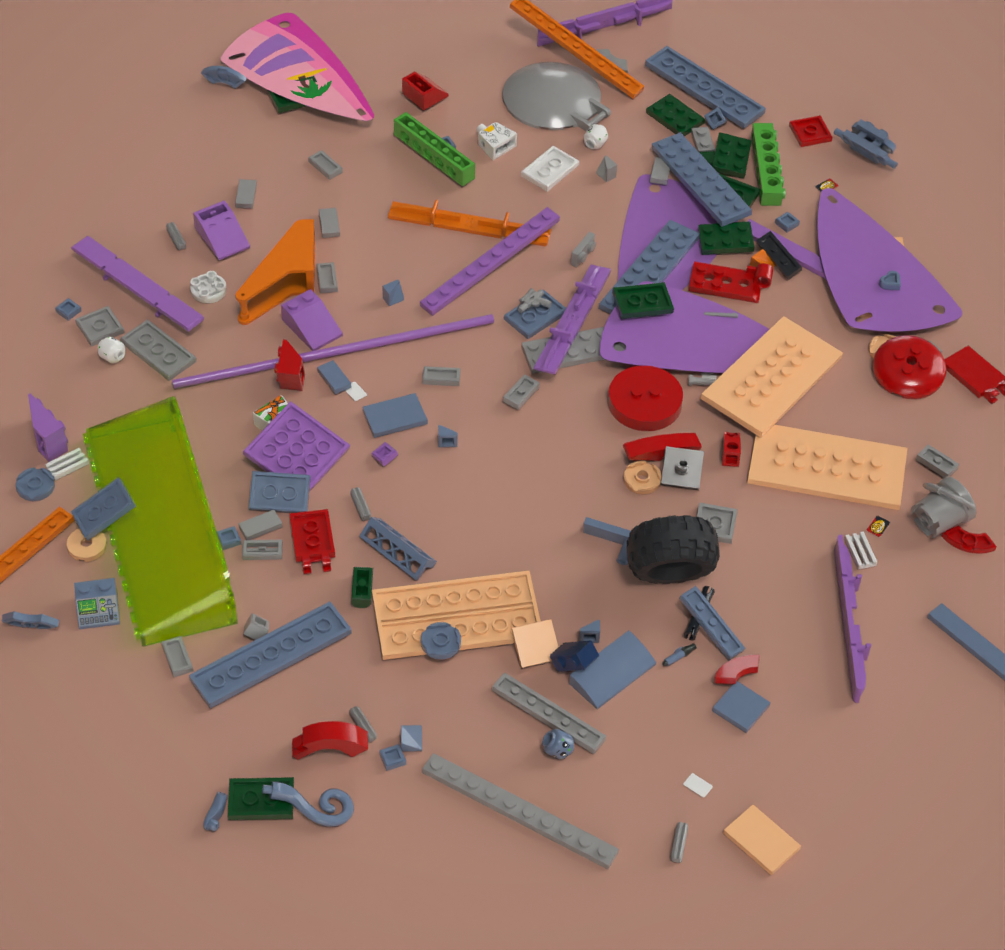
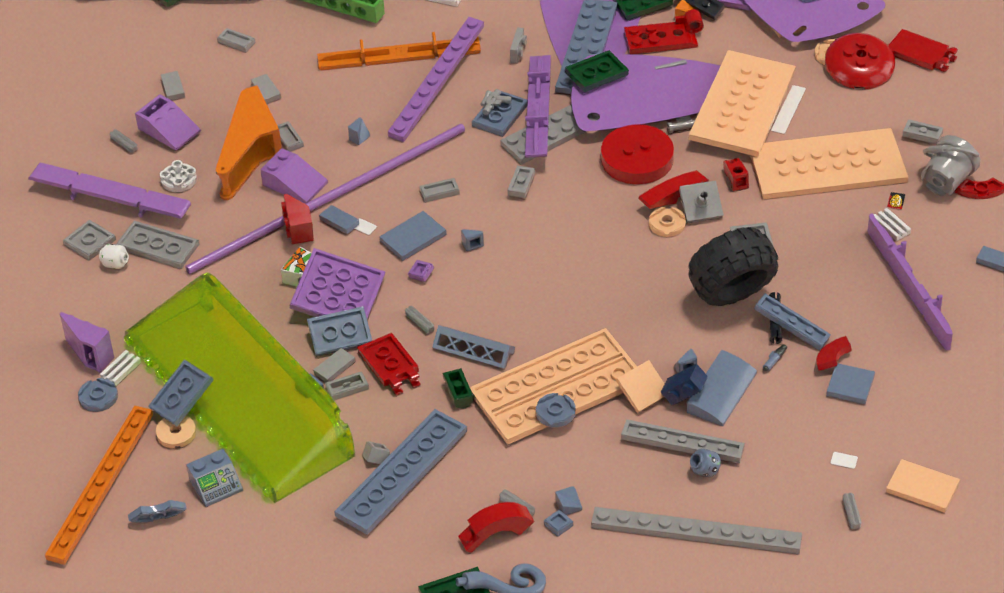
camera: 15 degrees left, 5 degrees down
(68, 309) = (50, 234): sand blue tile -> none
(177, 656) = (313, 500): light grey tile -> none
(610, 533) = (666, 275): sand blue piece -> none
(816, 395) = (788, 109): none -> white sticker

